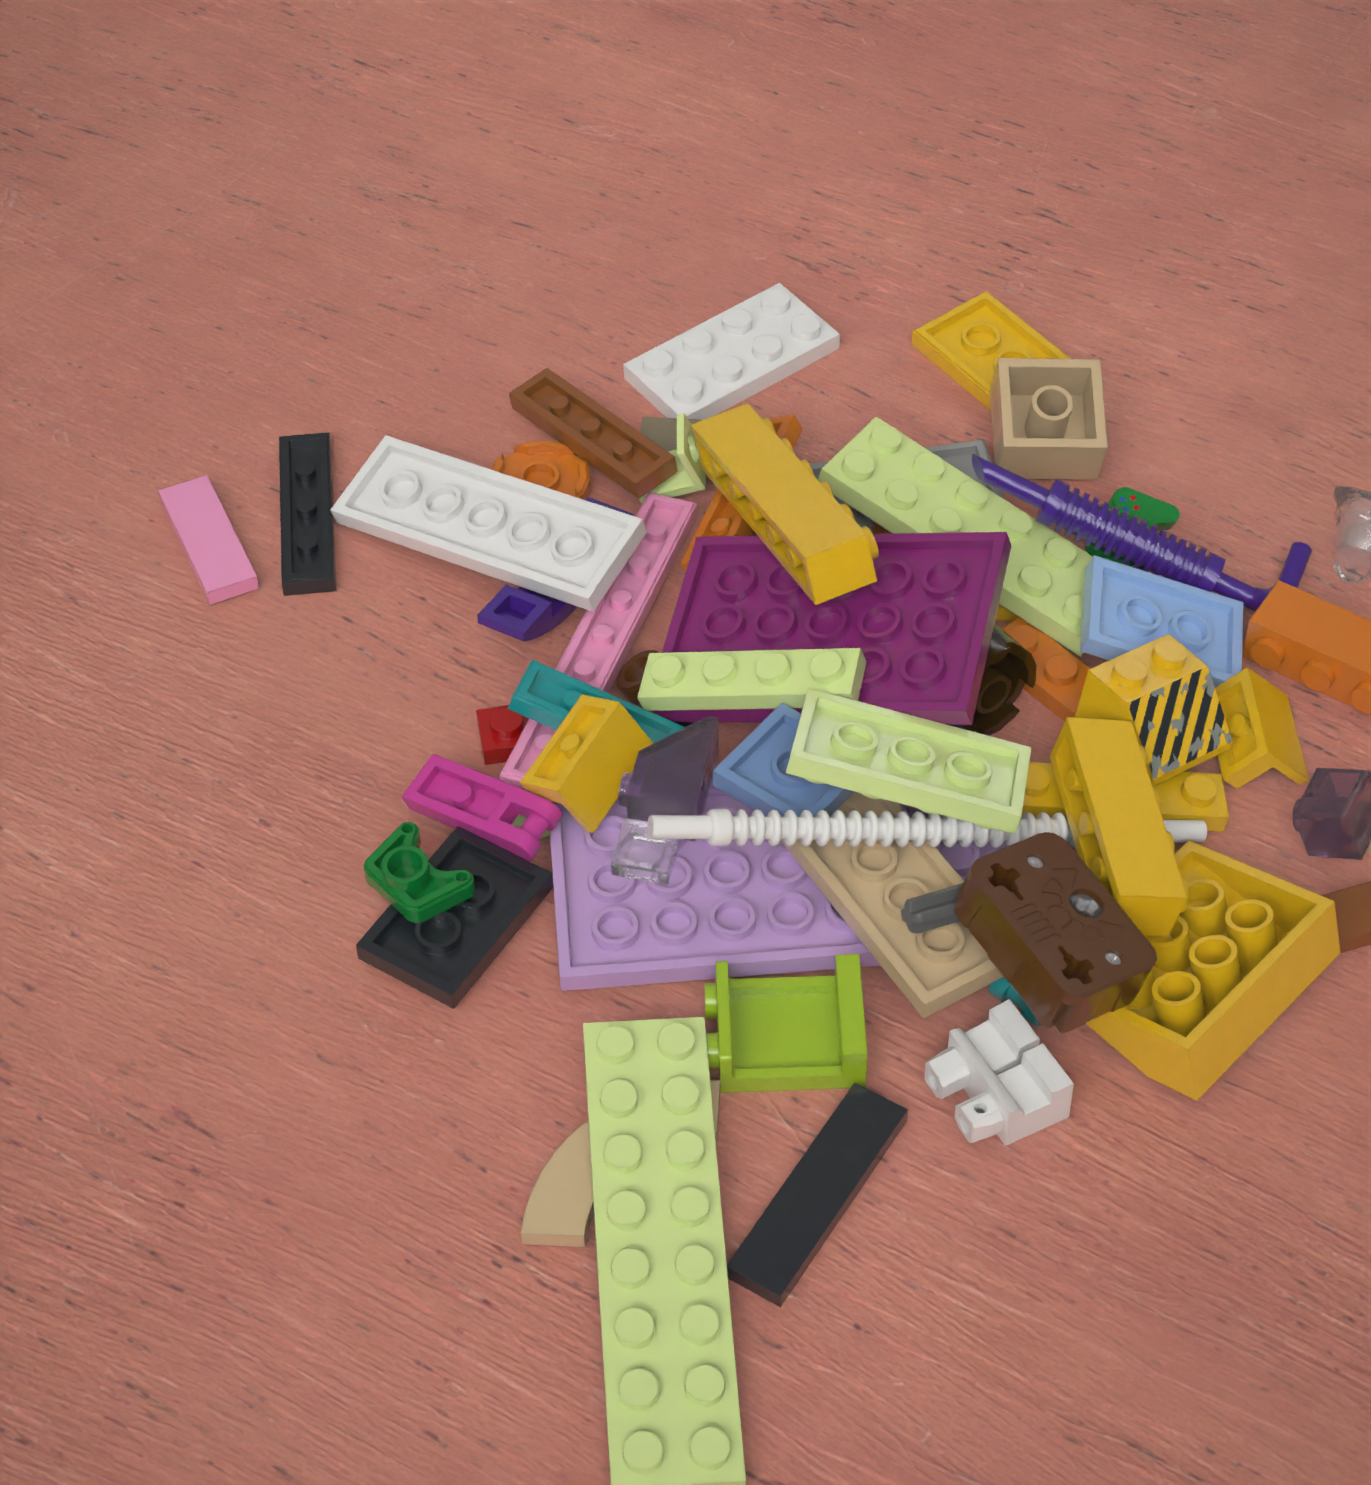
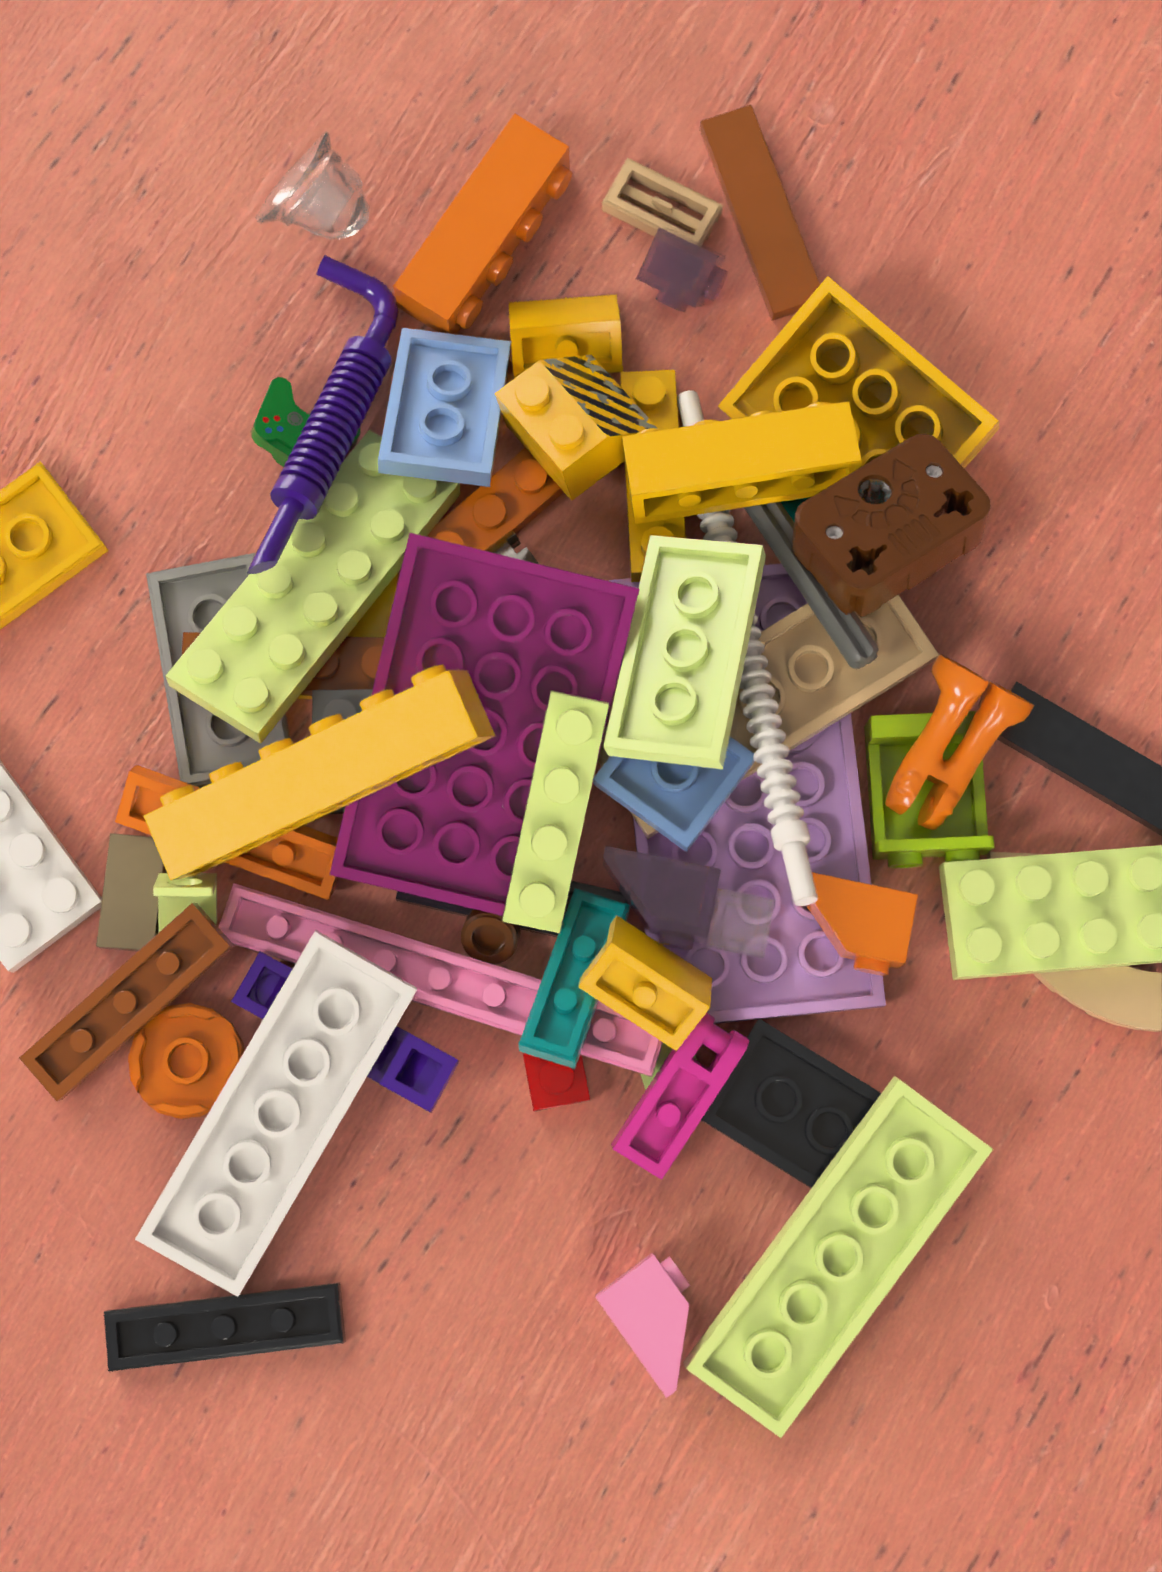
camera: 90 degrees left, 30 degrees up
(208, 540) = (265, 1438): bright pink tile -> none
(270, 792) = (651, 1316): none -> bright pink slope
(317, 928) = (837, 1257): none -> yellowish green plate
(410, 882) = (777, 1162): green piece -> none
(643, 937) = (865, 922): none -> orange slope
(869, 1047) = (958, 693): none -> orange piece
(1007, 1075) = (979, 591): white hips -> none
(1049, 418) = (145, 498): tan brick -> none

